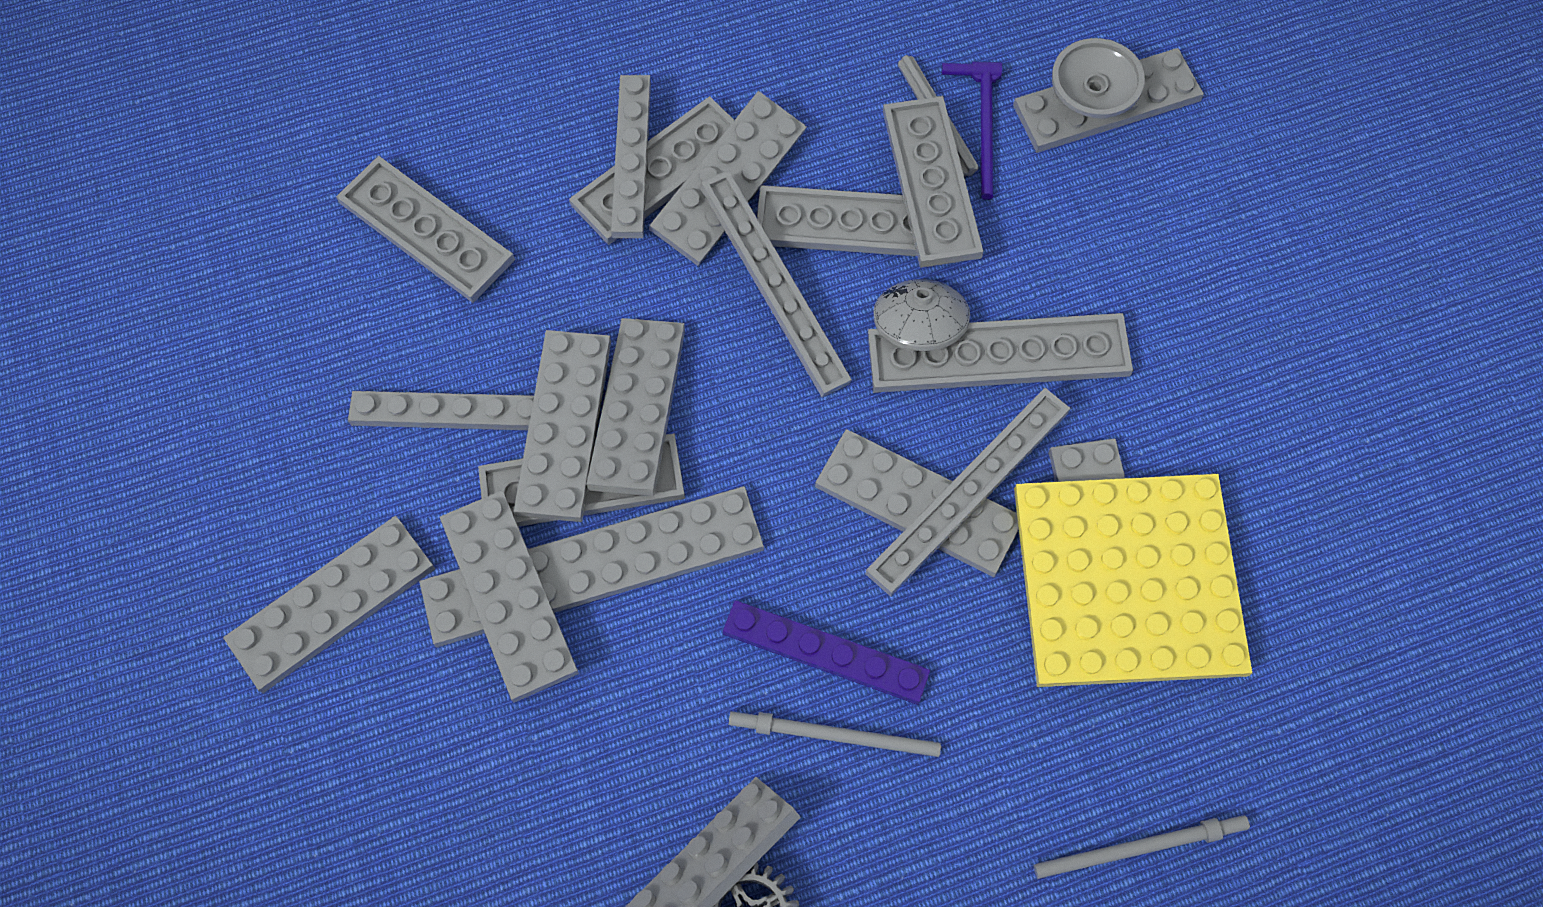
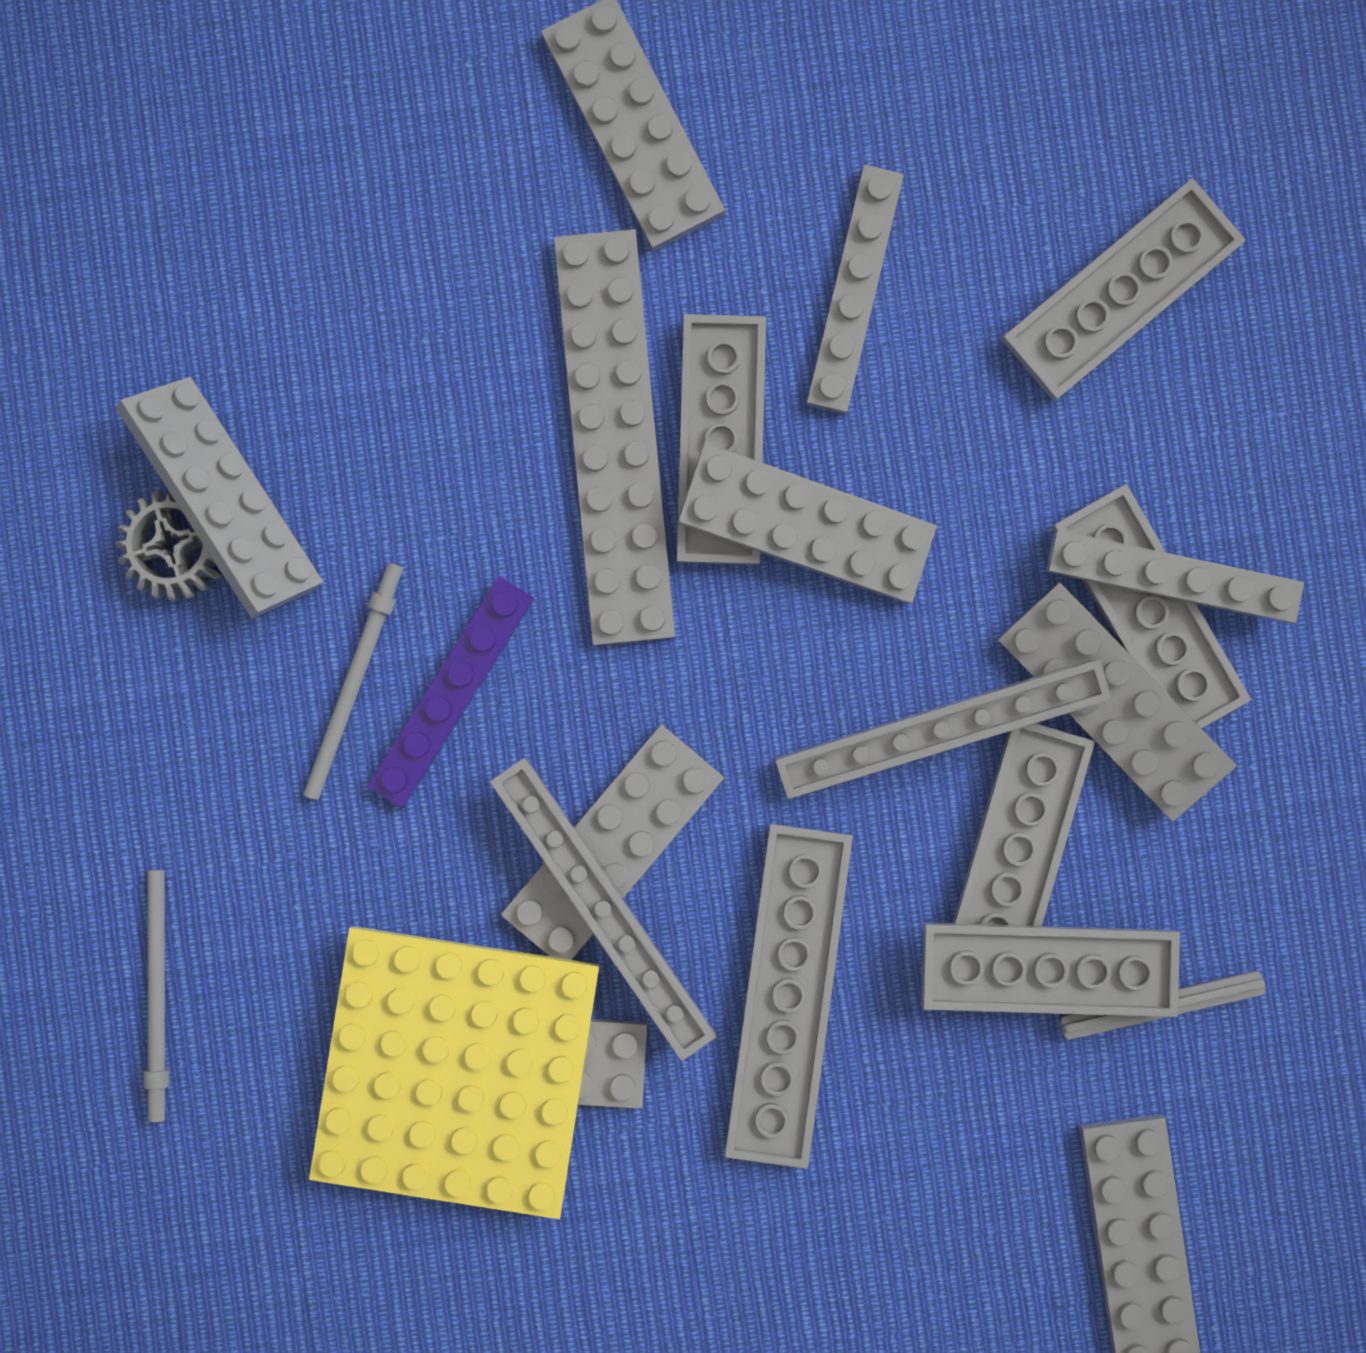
camera: 105 degrees right, 20 degrees up
(508, 596) = (590, 330): light grey plate -> none
(563, 426) = (797, 427): light grey plate -> none
(921, 315) = (838, 906): light grey dish -> none
(986, 74) = (1215, 1089): dark purple bar -> none
(1102, 67) = (1172, 1259): light grey dish -> none

